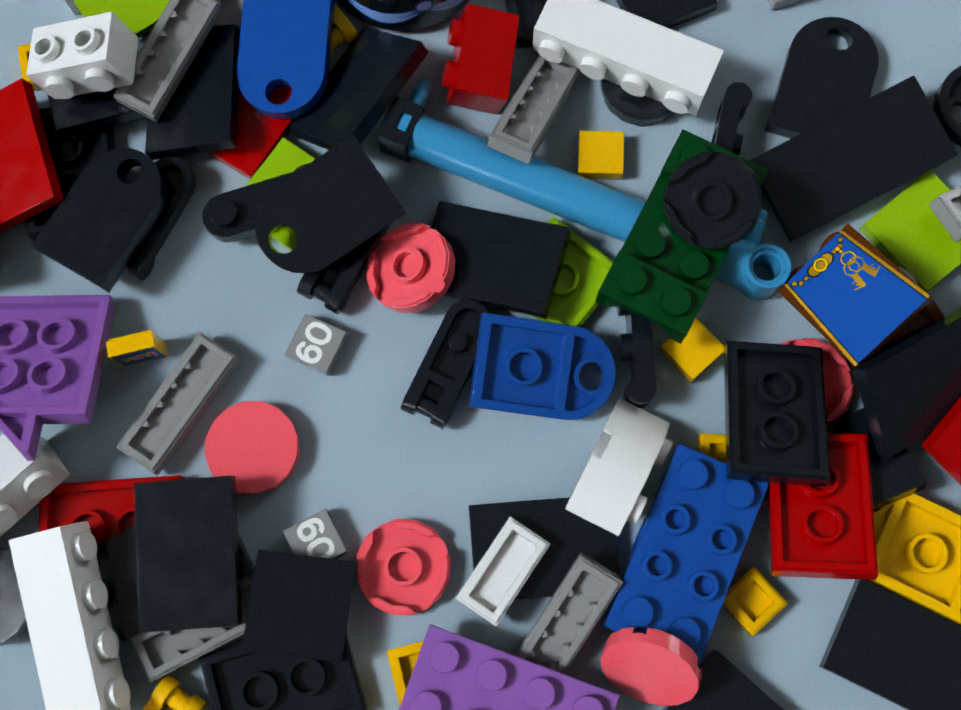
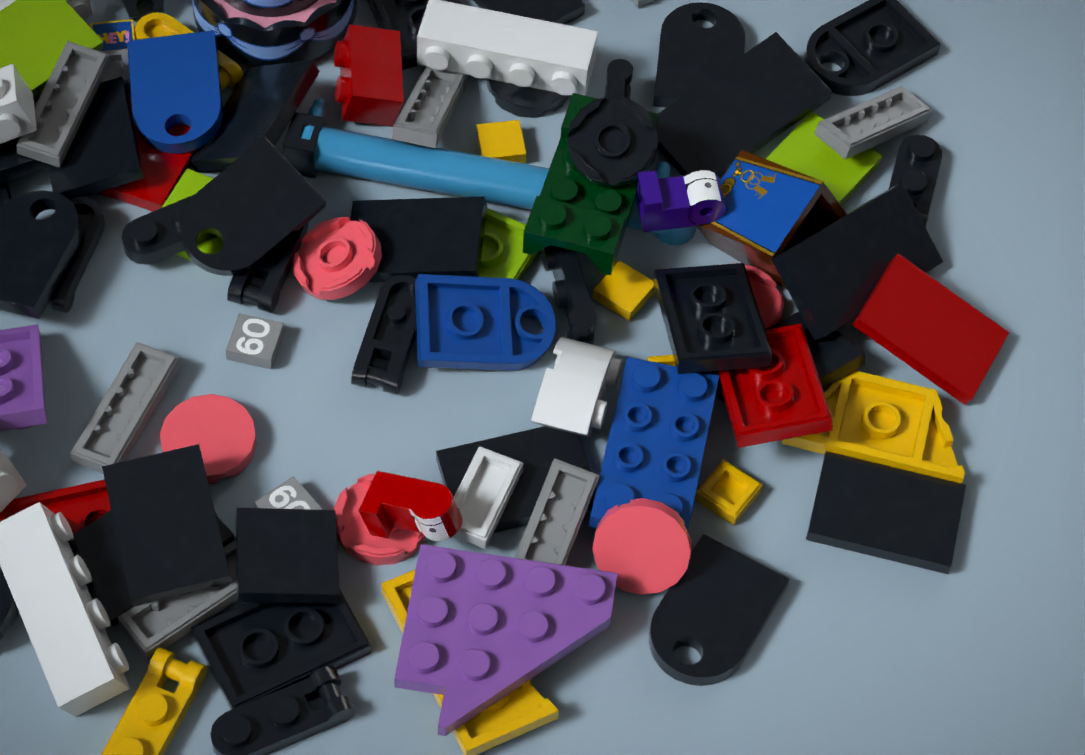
camera: 20 degrees left, 20 degrees down
(136, 348) = (75, 366): yellow tile -> none
(442, 589) = (410, 506): none -> red leg
(769, 274) = (678, 200): none -> dark purple leg

